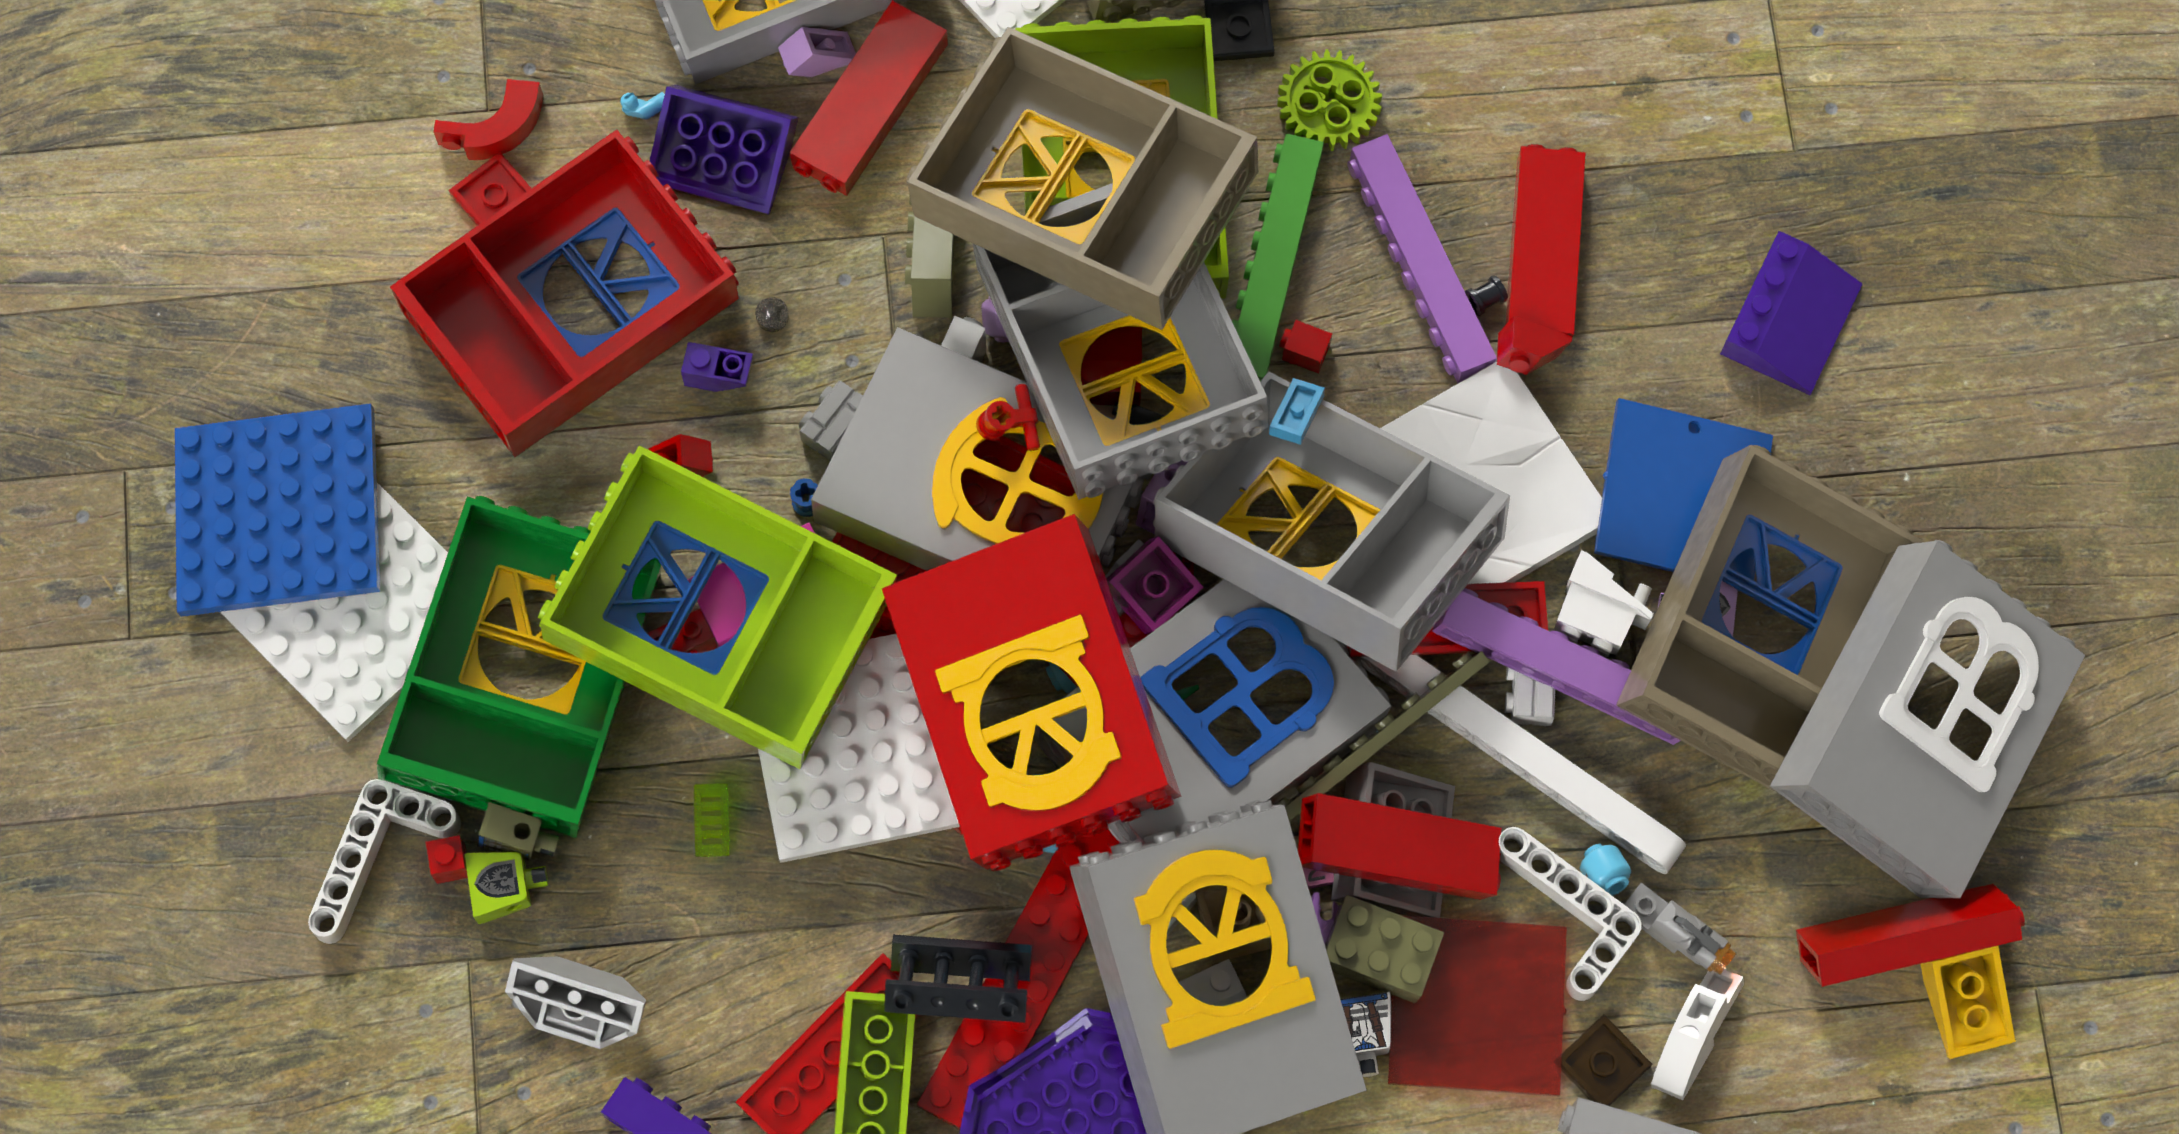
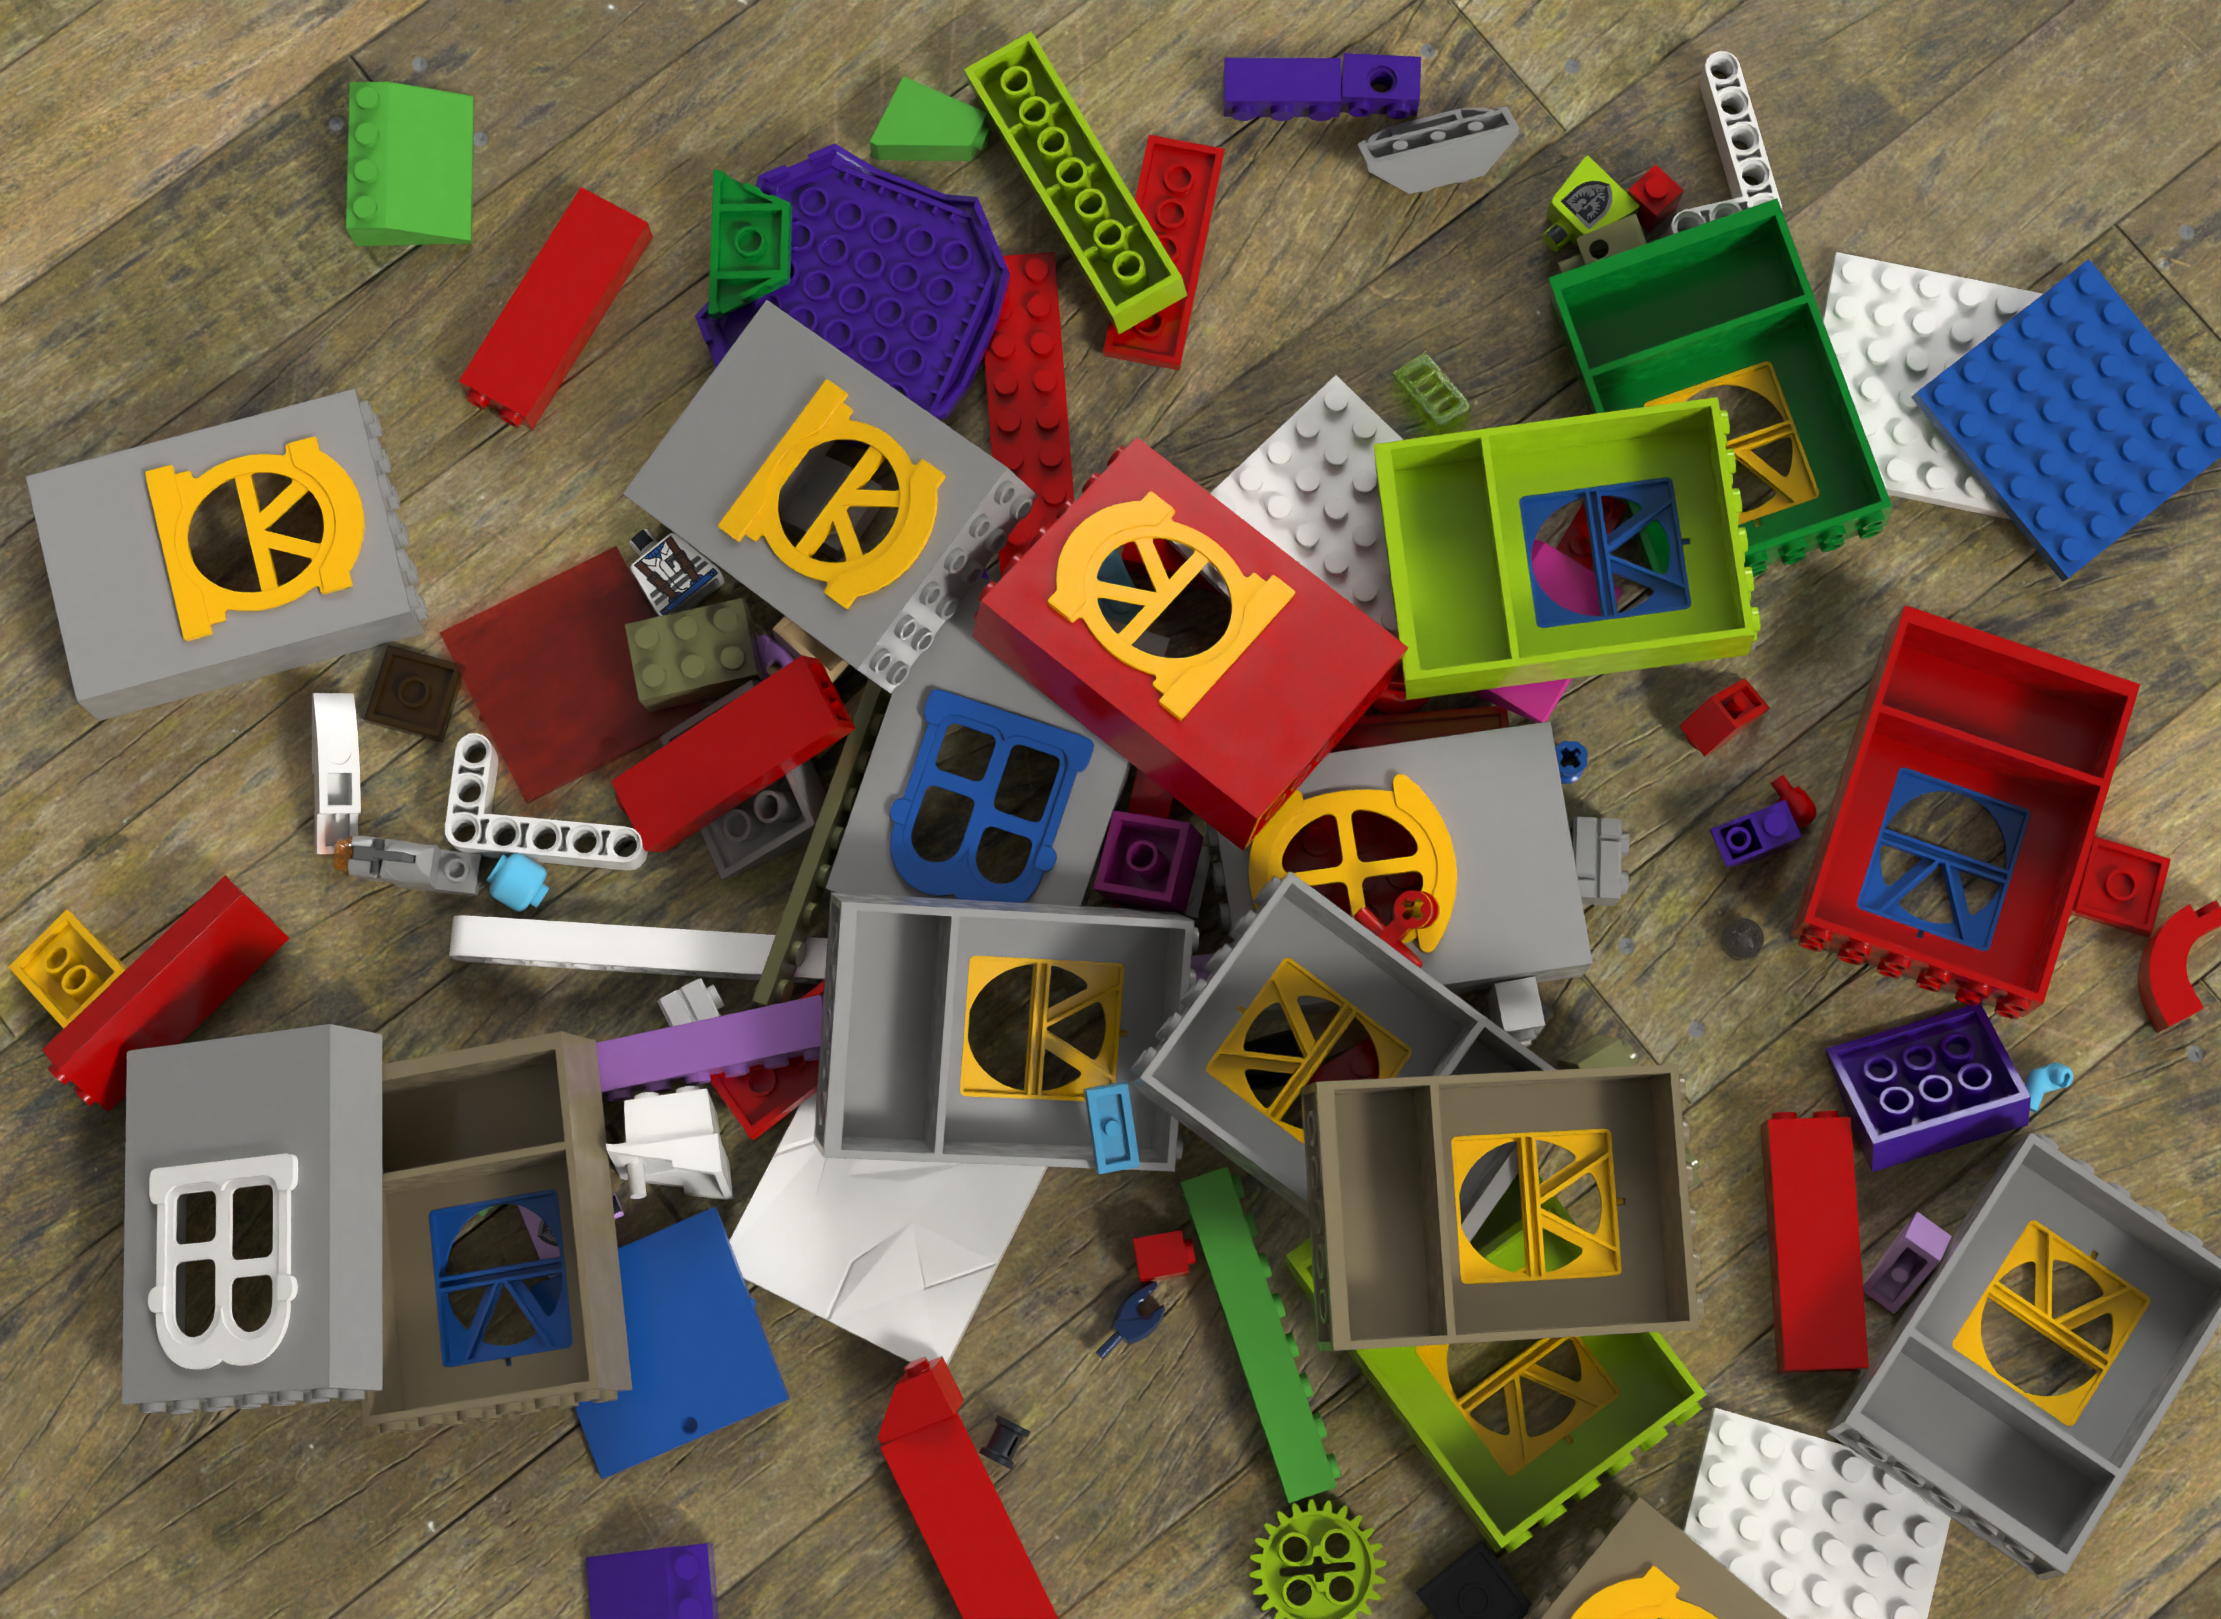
camera: 150 degrees right, 5 degrees up
(562, 1074) = (1398, 73): none -> dark purple brick
(670, 379) = (1798, 801): none -> red cylinder
(958, 958) = (1114, 384): black fence -> none
(1355, 320) = (1129, 1324): none -> dark blue hand
(1421, 258) = (1100, 1440): medium lavender brick -> none

